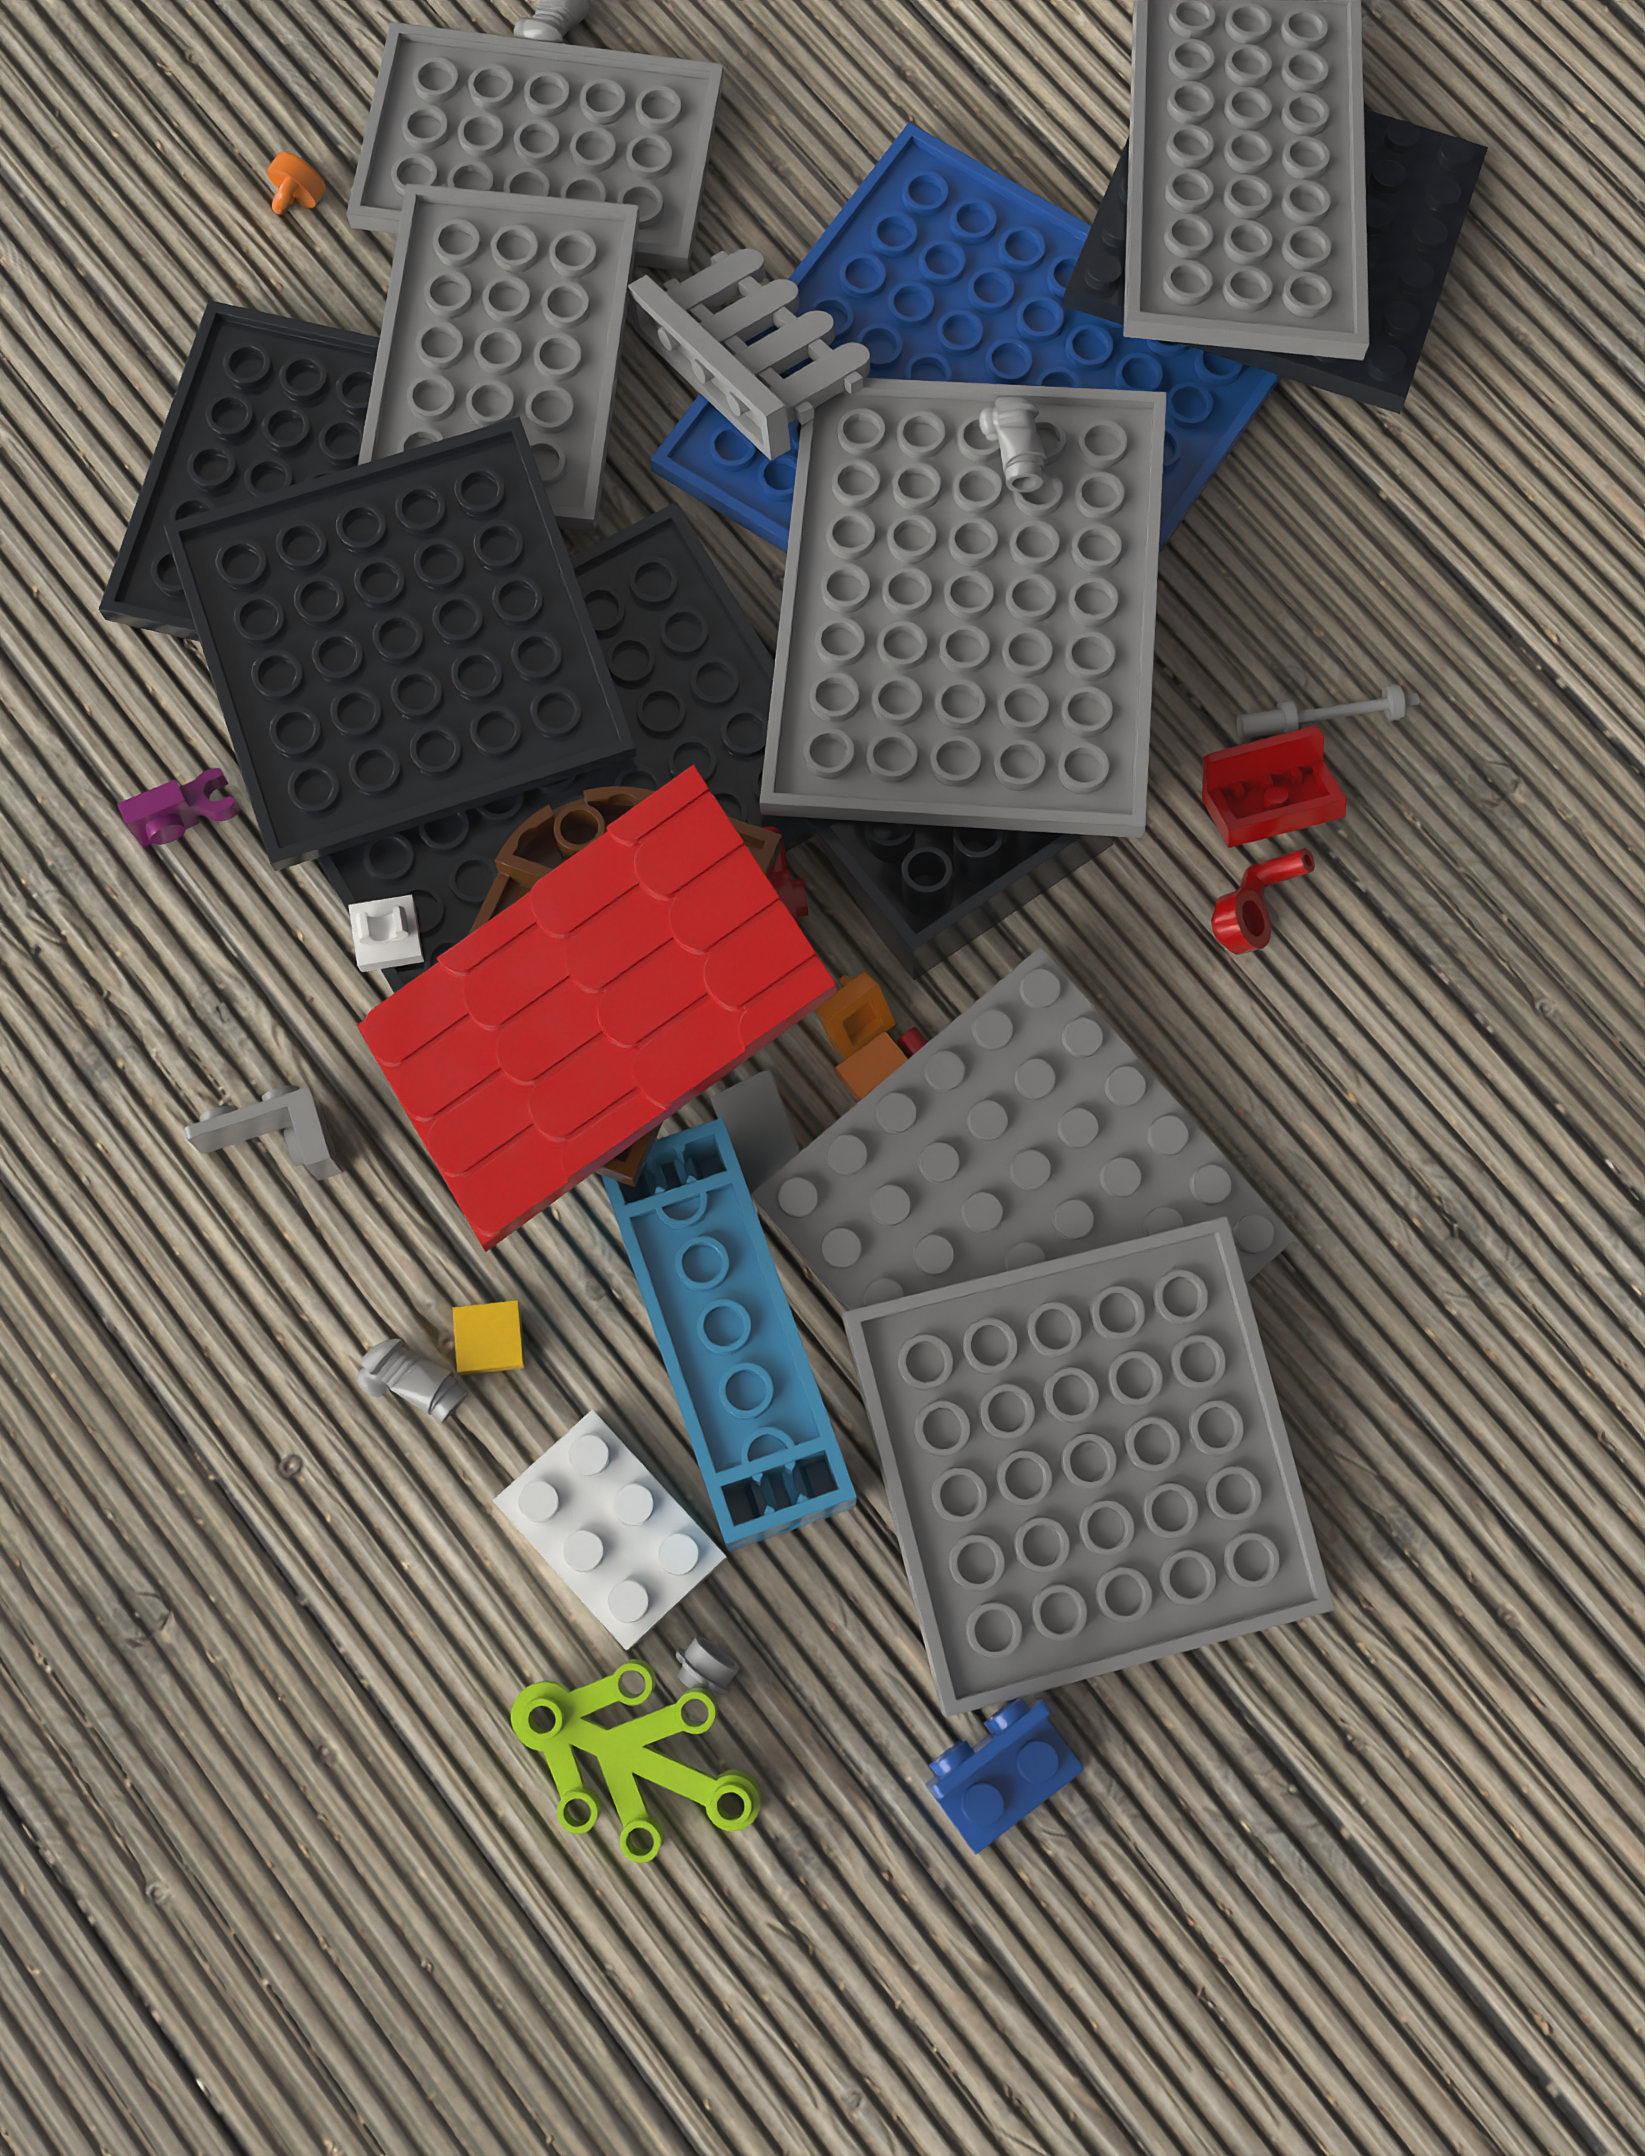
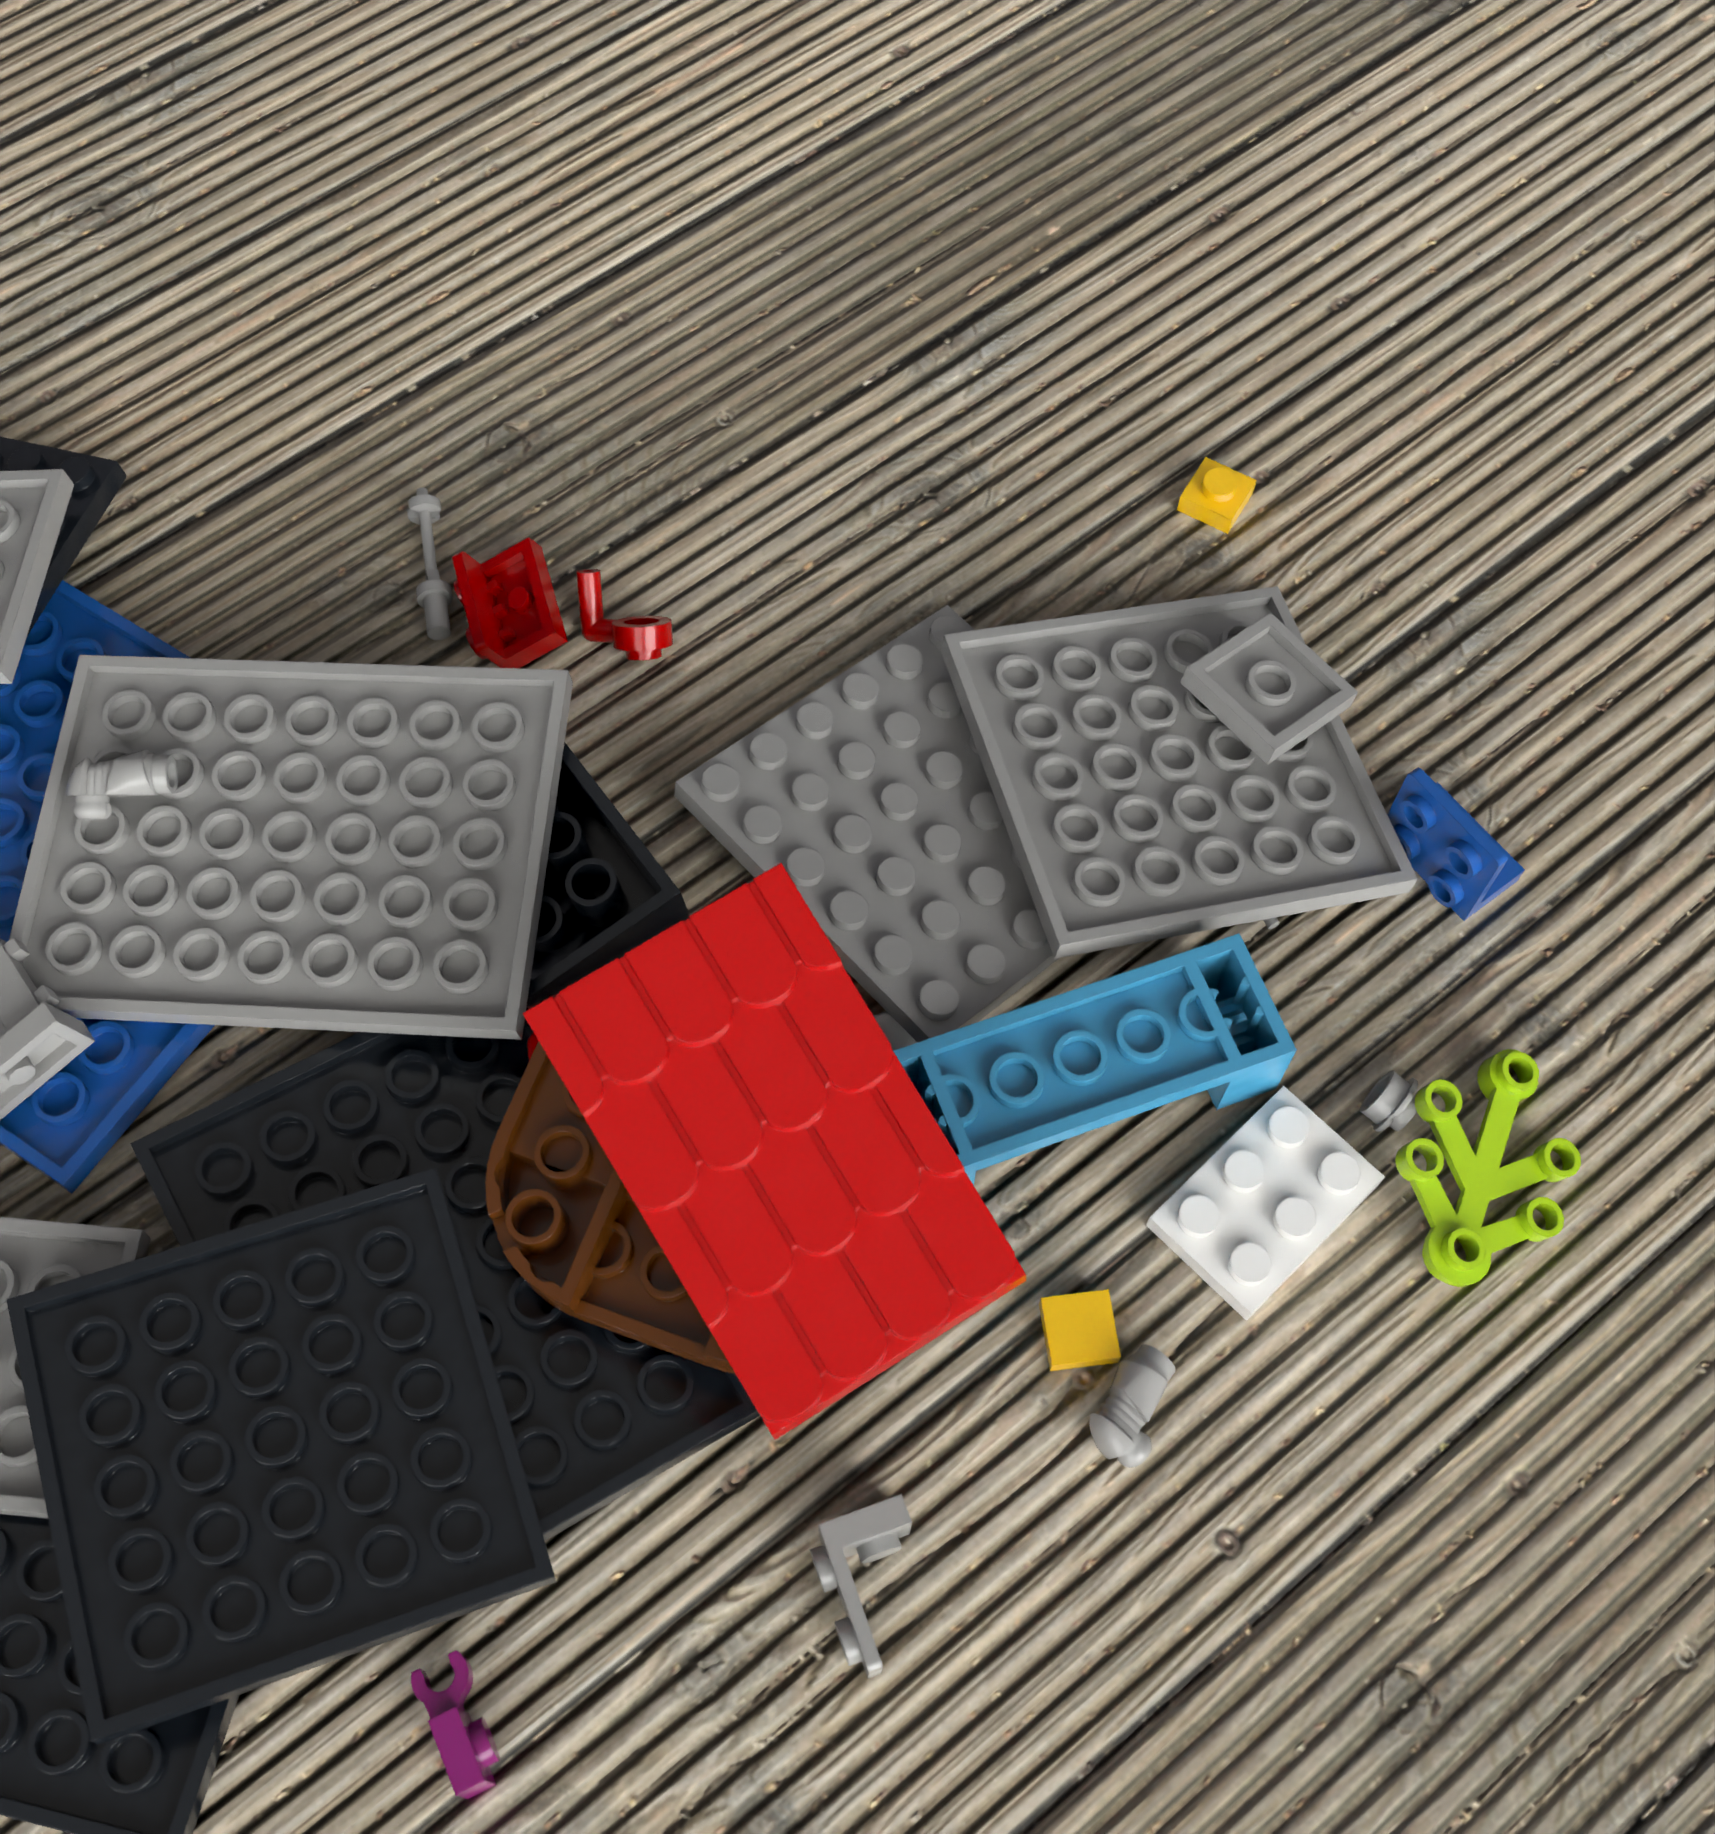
camera: 90 degrees left, 10 degrees down
(386, 933) = (635, 1448): white tile -> none
(1174, 1570) = (1268, 687): none -> light grey plate
(1470, 1556) = (1216, 495): none -> yellow plate

